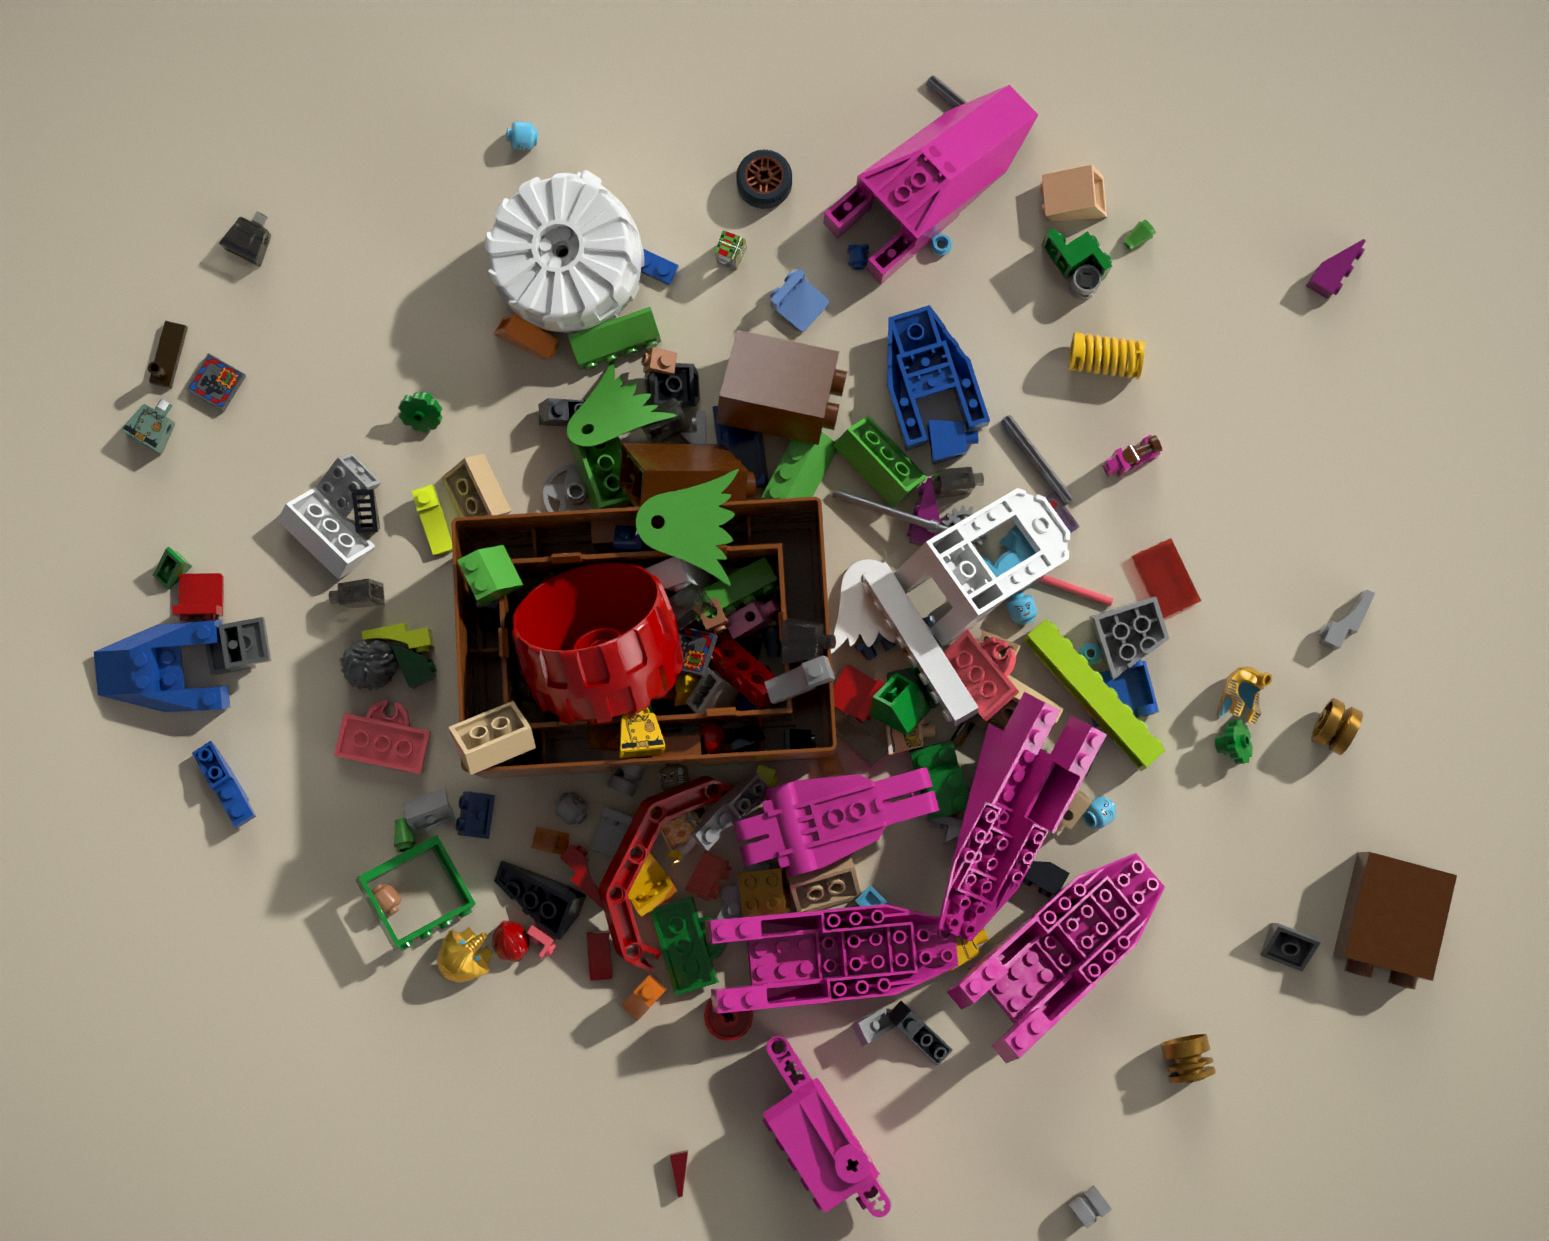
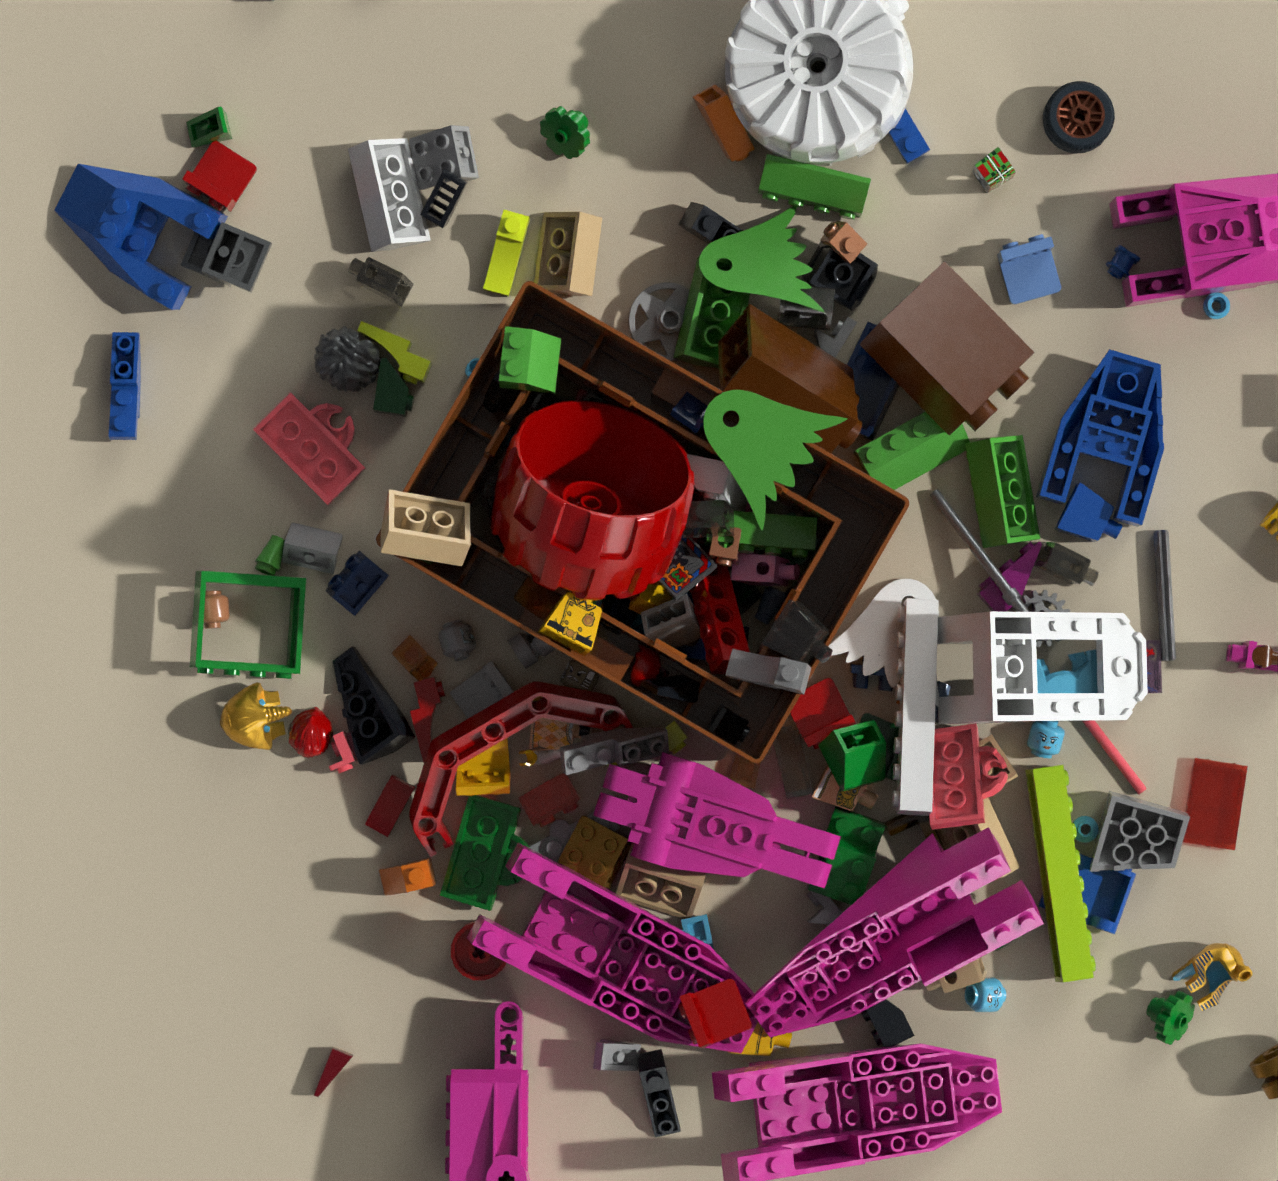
camera: 30 degrees right, 5 degrees up
(921, 949) = (715, 1013): none -> red bracket

